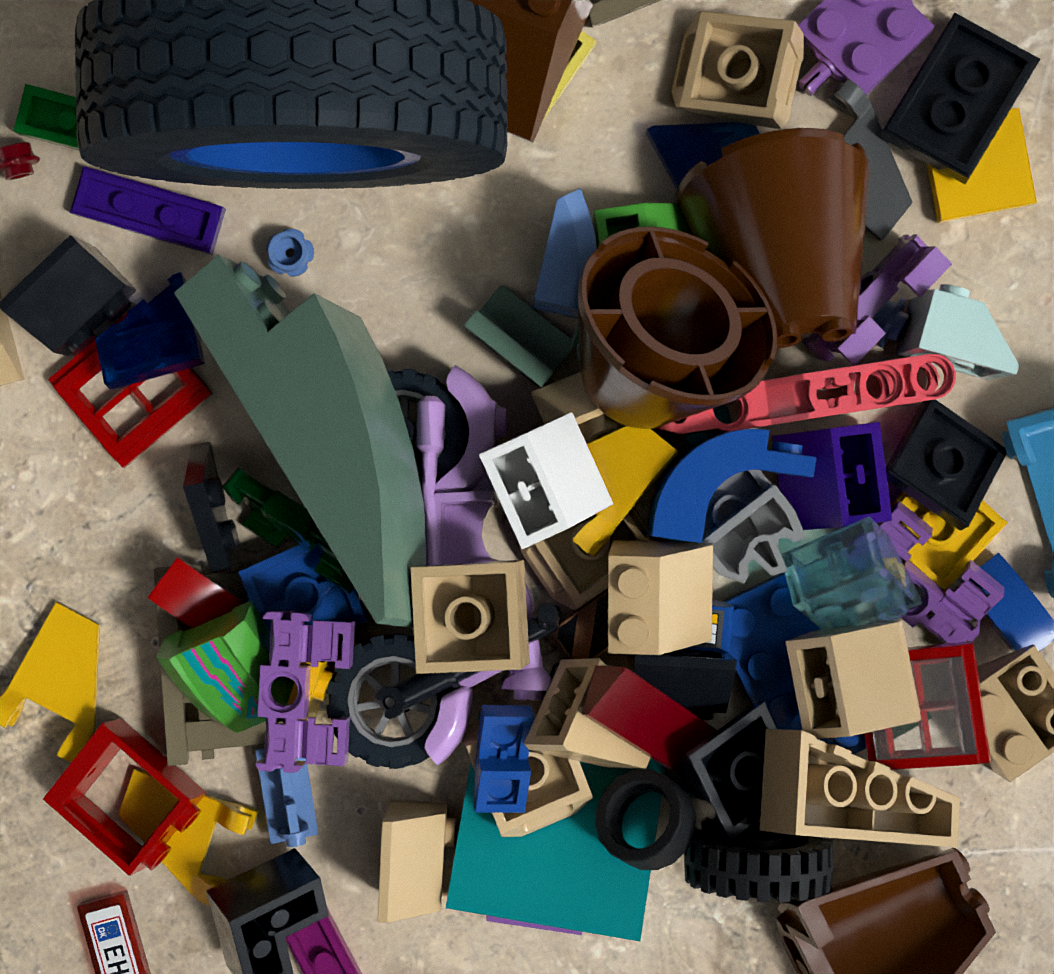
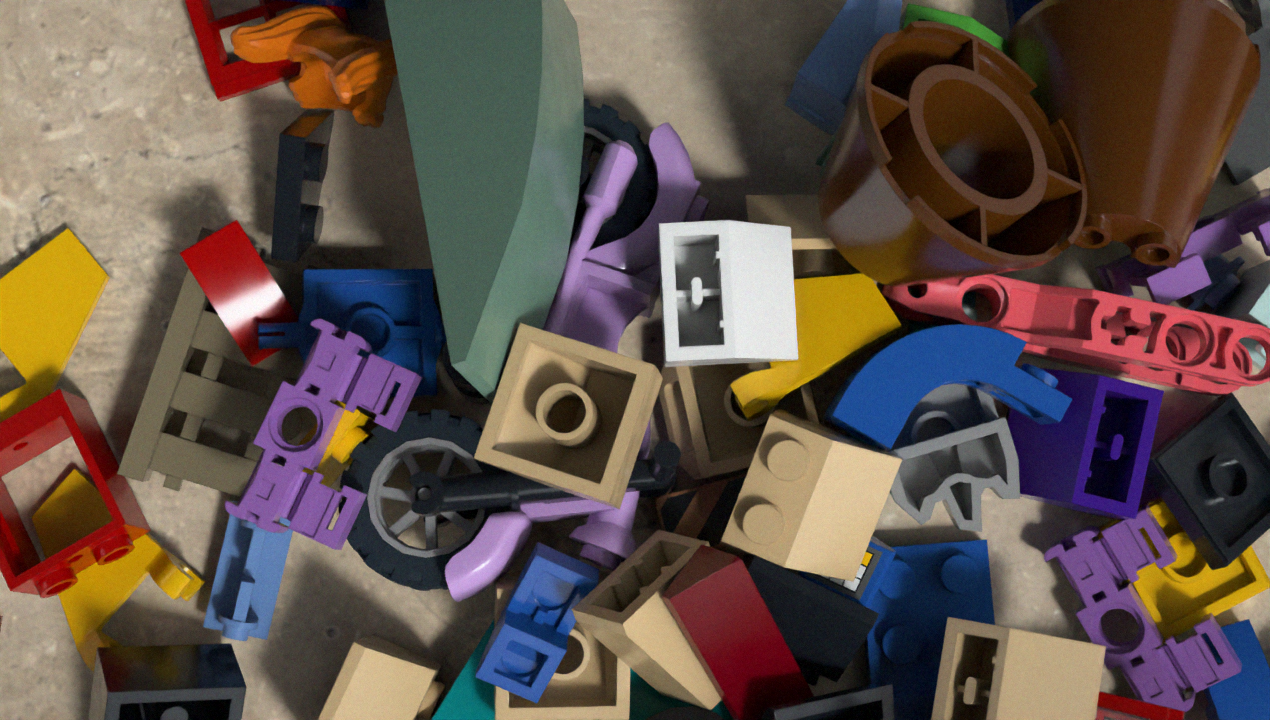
camera: 20 degrees right, 5 degrees down
(197, 411) = (336, 64): none -> orange hair
(221, 664) = (229, 374): bright green slope -> none
(278, 516) = (382, 223): dark green piece -> none
(520, 336) = (756, 128): sand green panel -> none
(850, 578) = (1055, 571): clear light blue slope -> none

